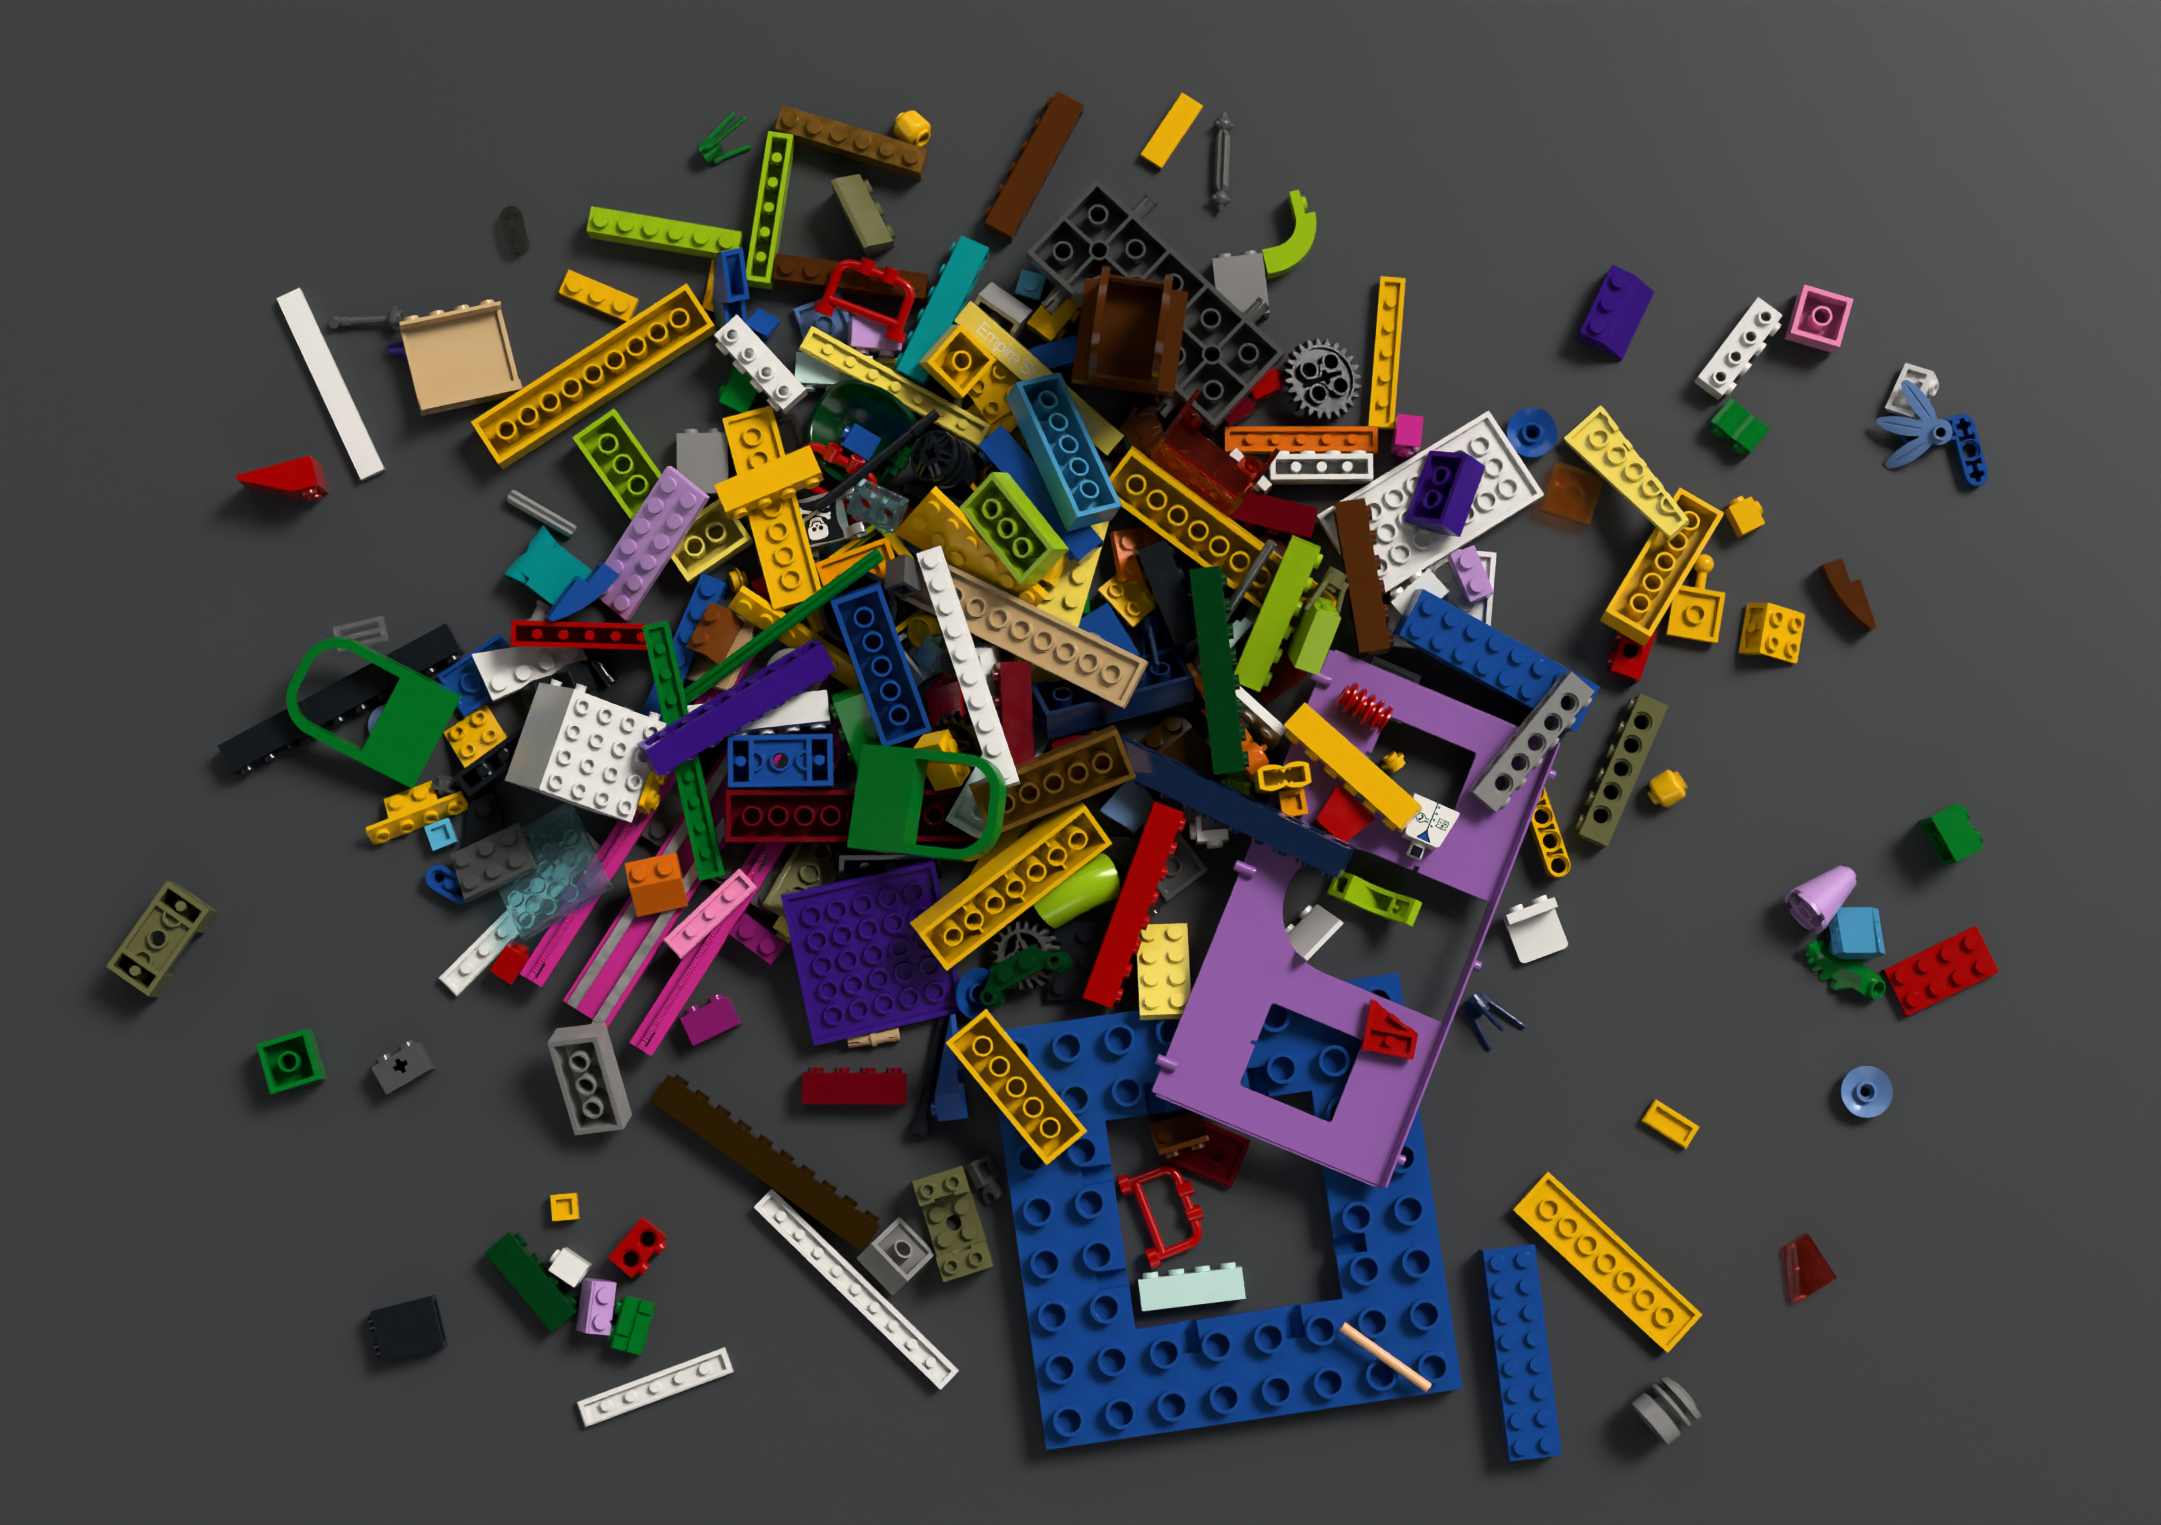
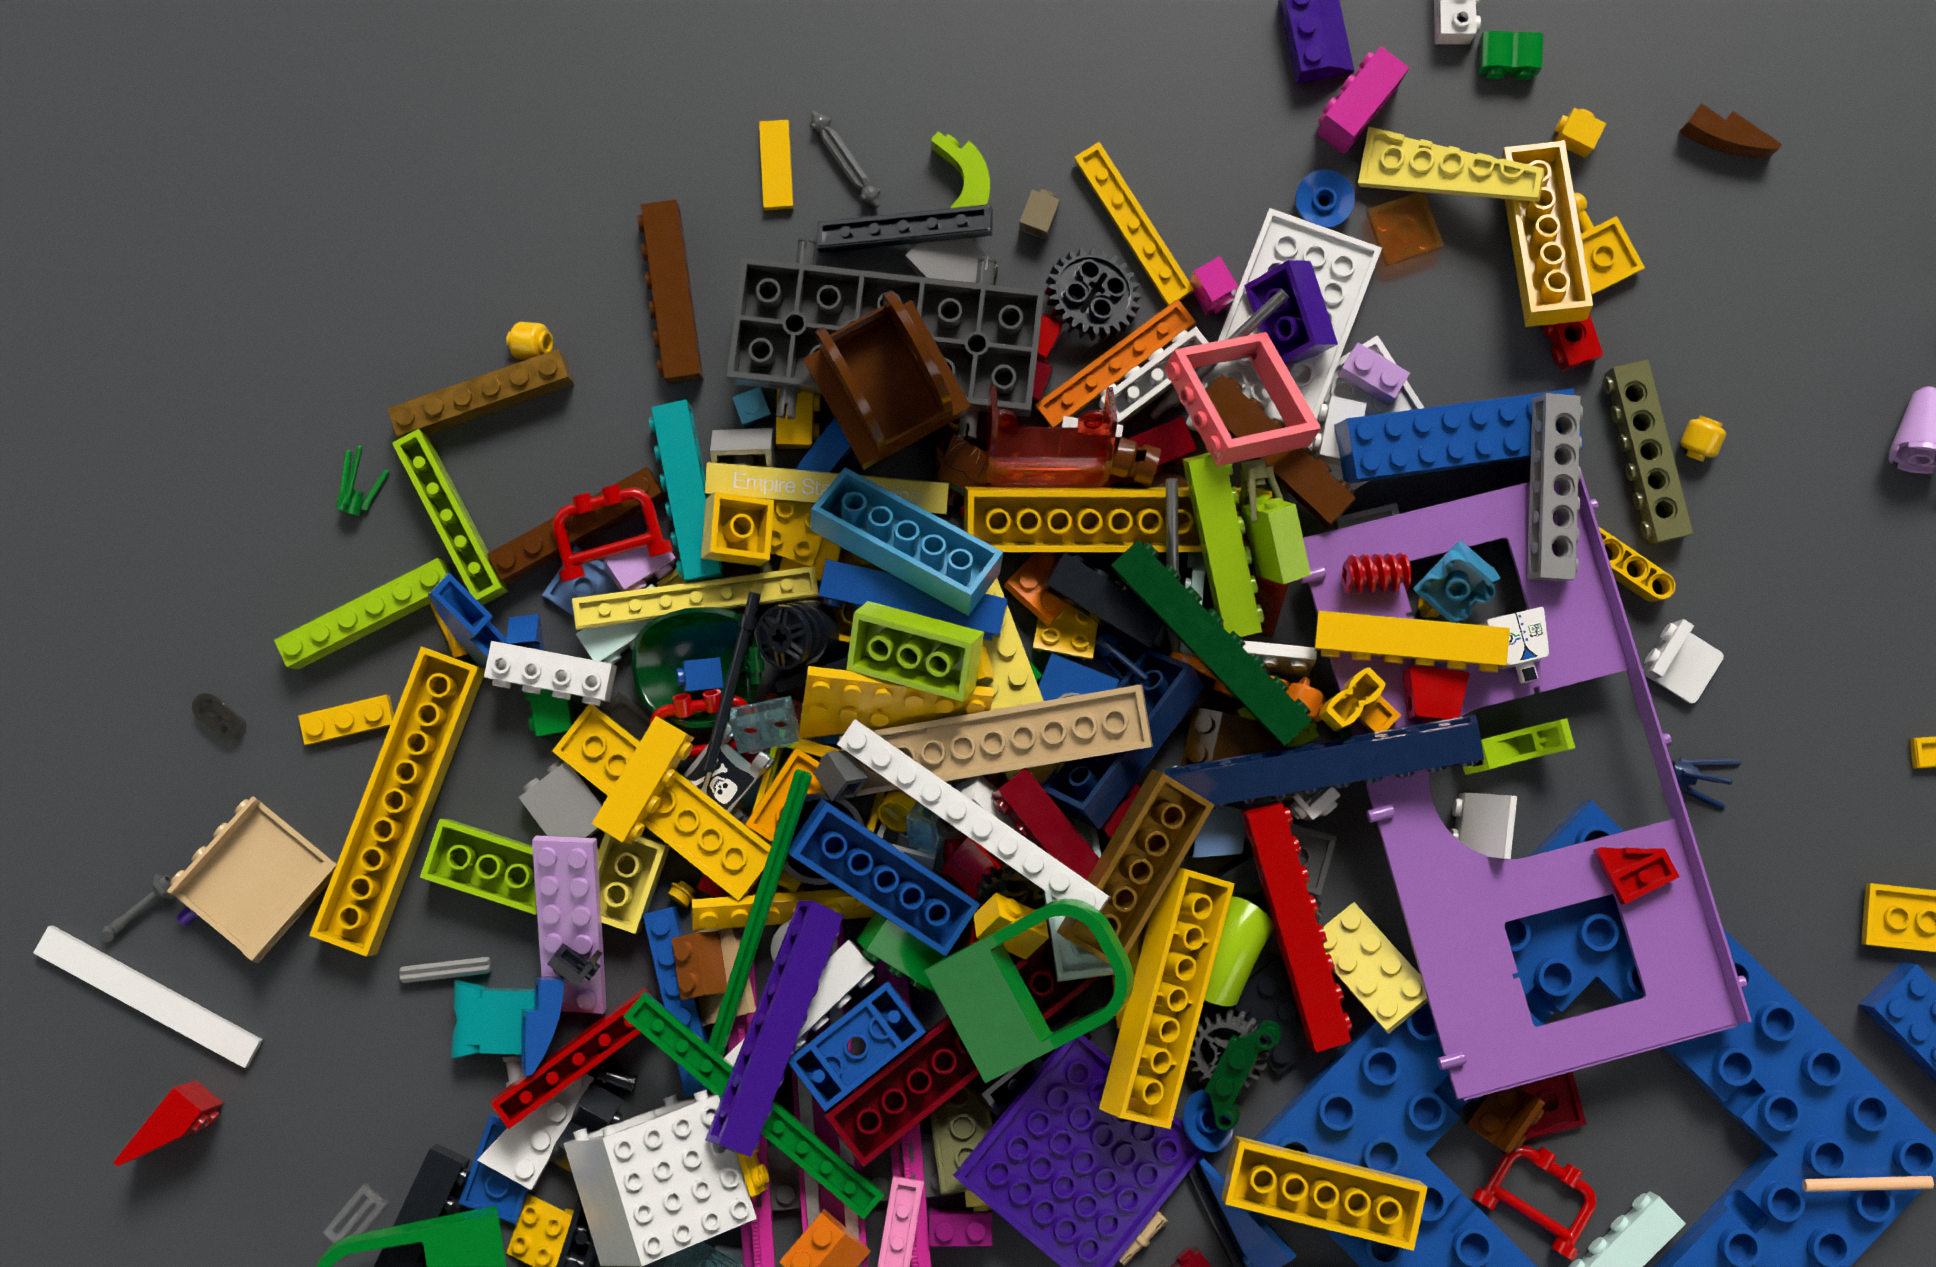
camera: 30 degrees left, 0 degrees up
(630, 570) = (572, 966): none -> black bracket
(863, 214) = (543, 456): olive slope -> none
(1225, 240) = (905, 228): none -> black tile
(1261, 522) = (1135, 461): none -> reddish brown wheel
(1325, 491) = (1171, 396): none -> flat silver bar
(1327, 297) = (1039, 213): none -> dark tan brick
(1398, 532) = (1277, 380): none -> coral window
(1418, 758) = (1458, 583): none -> dark azure slope
(1607, 382) = (1361, 99): none -> dark pink brick
(1772, 631) = (1684, 221): yellow bracket -> none

